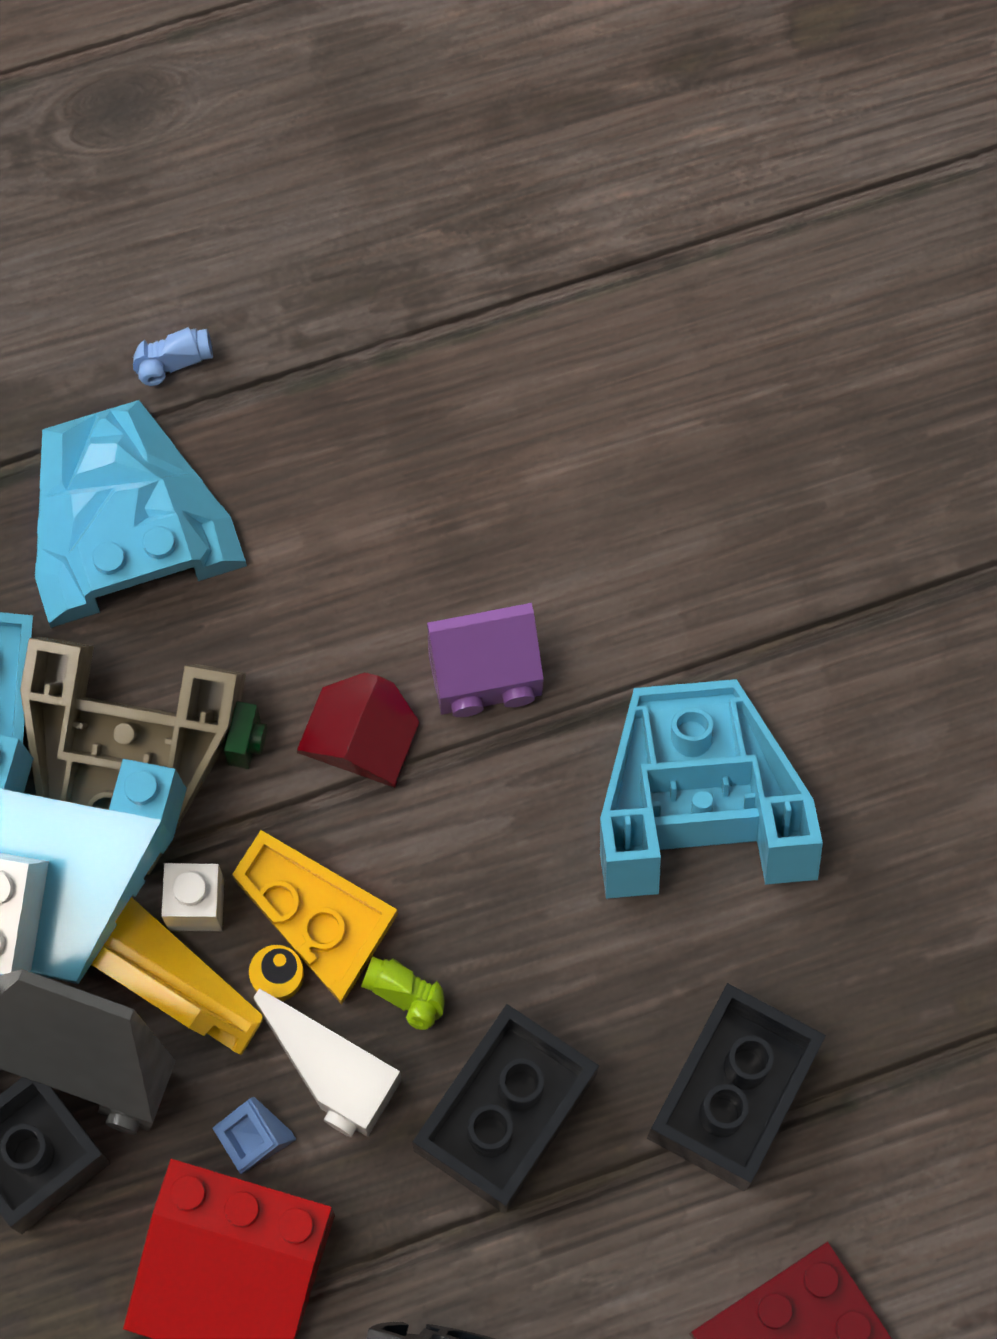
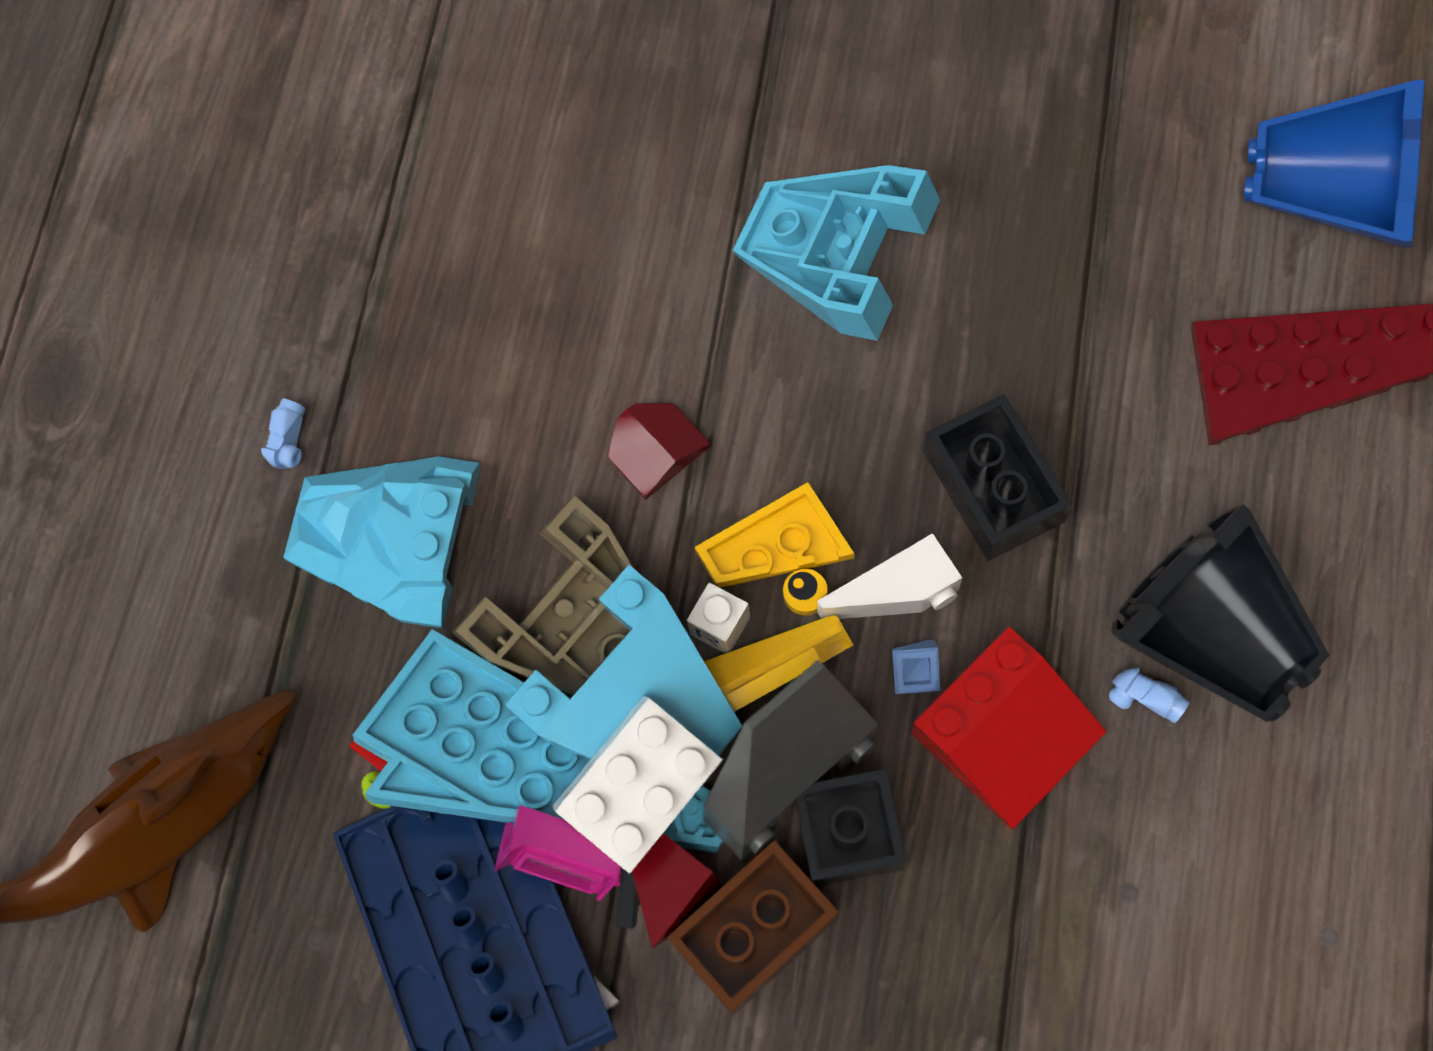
camera: 50 degrees left, 0 degrees up
(245, 735) = (620, 523): dark green plate -> none
(406, 991) = (869, 508): lime arm -> none
(485, 660) = (660, 329): medium lavender slope -> none
(736, 1087) = (1061, 320): black brick -> none

